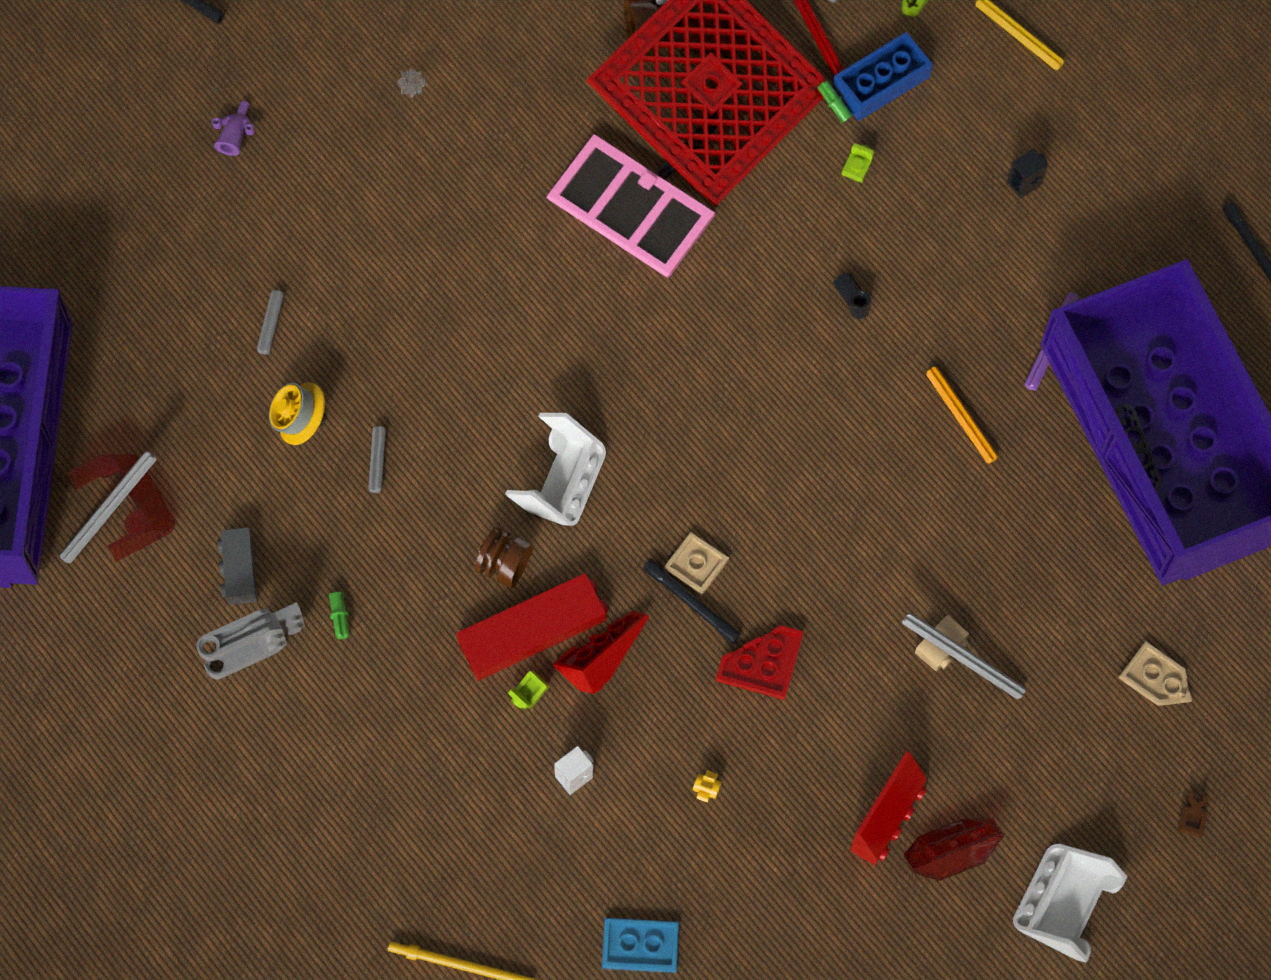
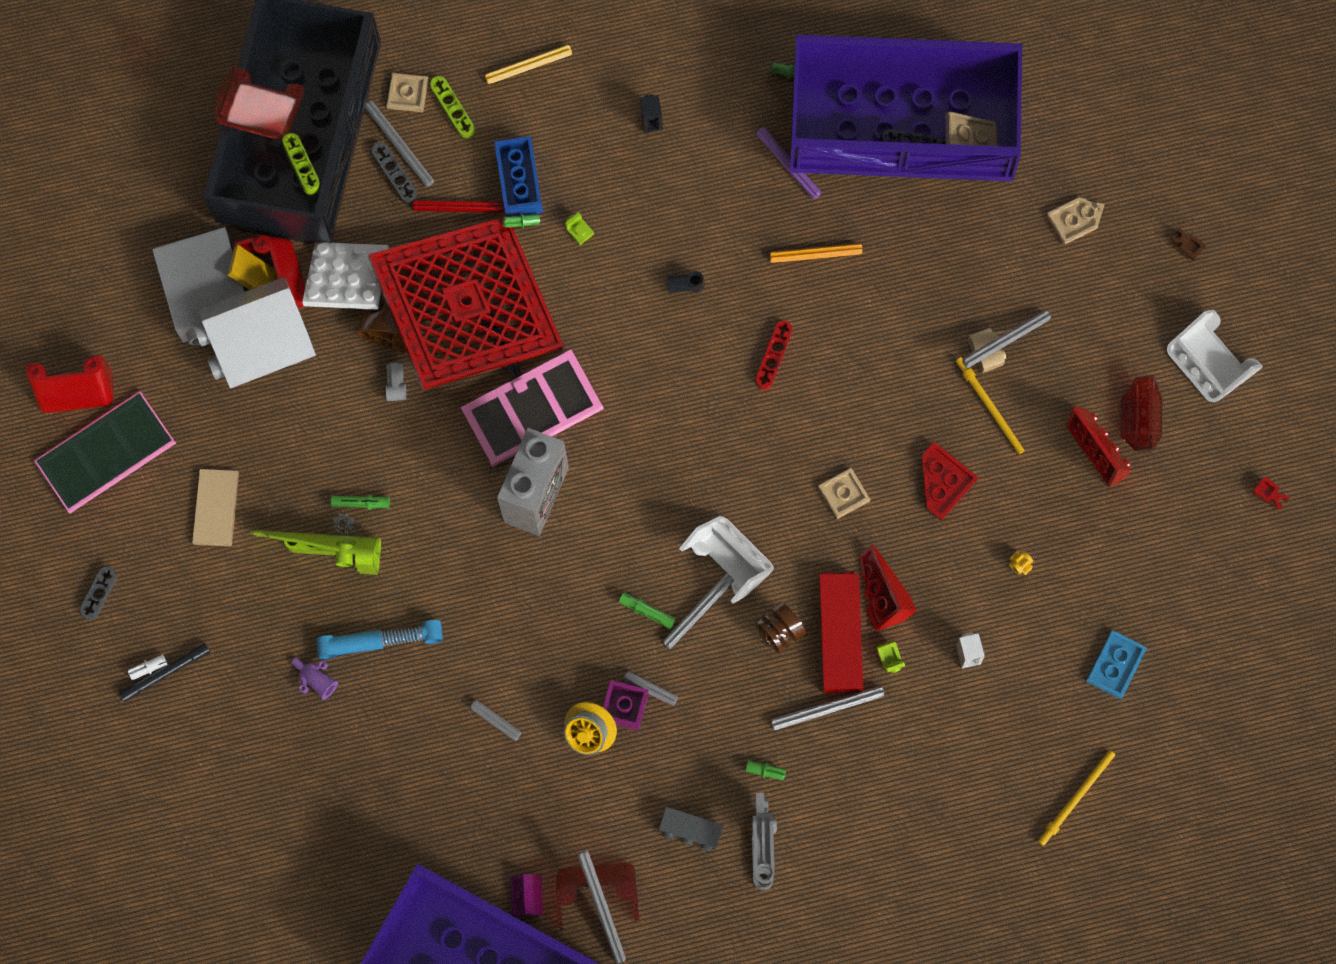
camera: 60 degrees left, 5 degrees up
(94, 435) = (526, 895): none -> magenta panel
(275, 130) = (331, 646): none -> dark azure piece
(342, 439) = (626, 704): none -> magenta brick
(381, 97) = (366, 549): none -> lime panel
(441, 651) = (827, 707): none -> light grey axle
(453, 107) = (360, 502): none -> bright green pin
(461, 407) = (650, 612): none -> bright green pin
(486, 470) = (698, 611): none -> light grey axle
(537, 230) = (533, 481): none -> light grey brick
(585, 65) = (395, 382): none -> light grey piece
(721, 626) = (901, 497): black piece -> none
(819, 425) = (774, 355): none -> red beam
(903, 639) = (969, 375): none -> yellow bar
(1186, 506) = (970, 130): none -> tan tile

